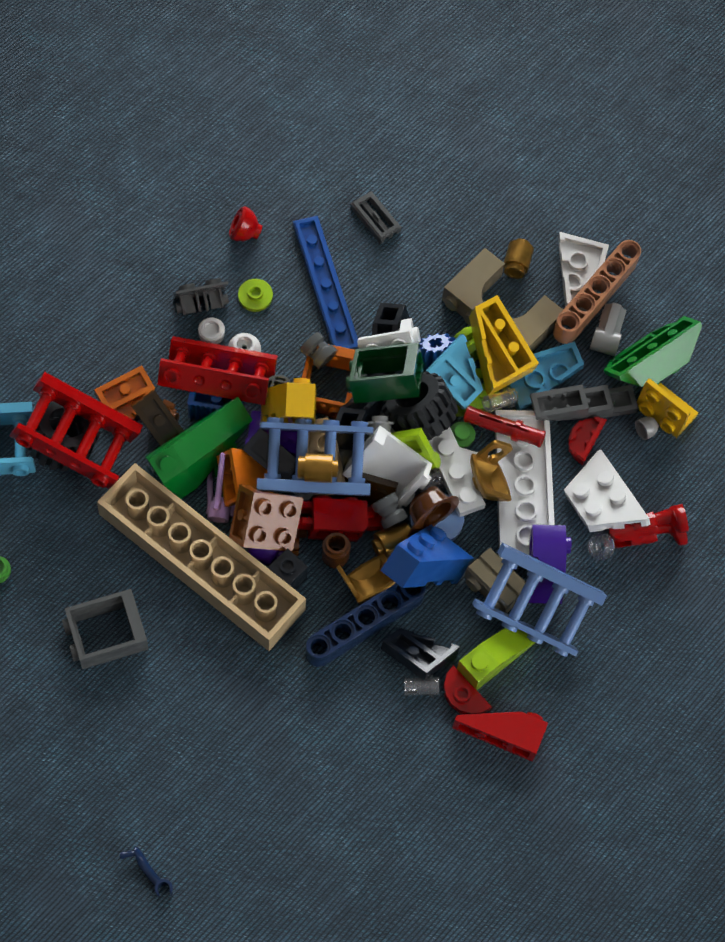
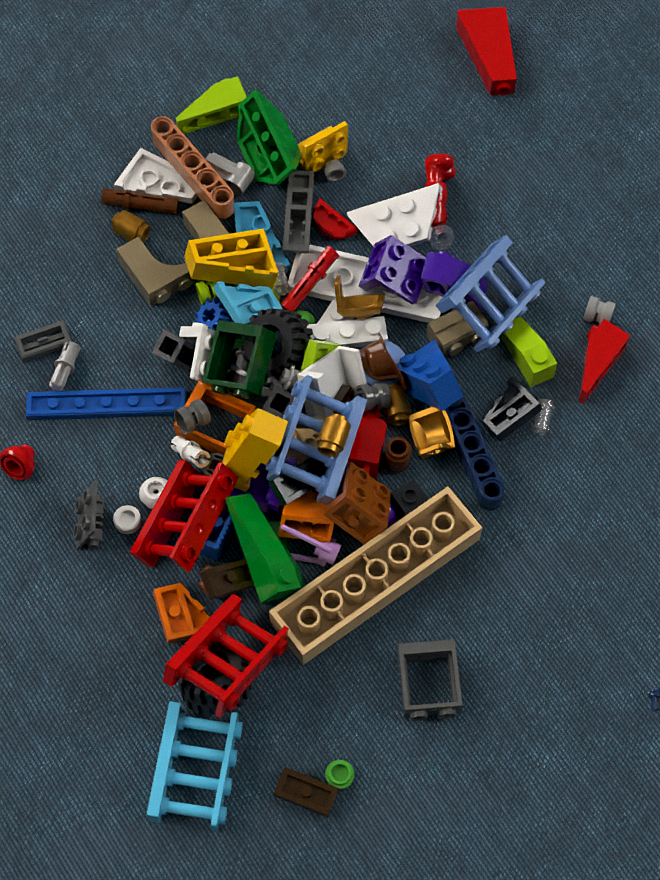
camera: 70 degrees left, 0 degrees up
(255, 295) = (97, 467): lime piece -> none
(287, 362) = (190, 451): none -> white pin
(352, 238) = (64, 365): none -> light grey axle
(463, 695) = (555, 386): red plate -> none
(539, 502) = (395, 268): none -> dark purple bracket
(548, 250) = (129, 199): none -> reddish brown pin
(561, 721) = (598, 310): none -> light grey wheel
(680, 296) = (213, 106): none -> lime slope

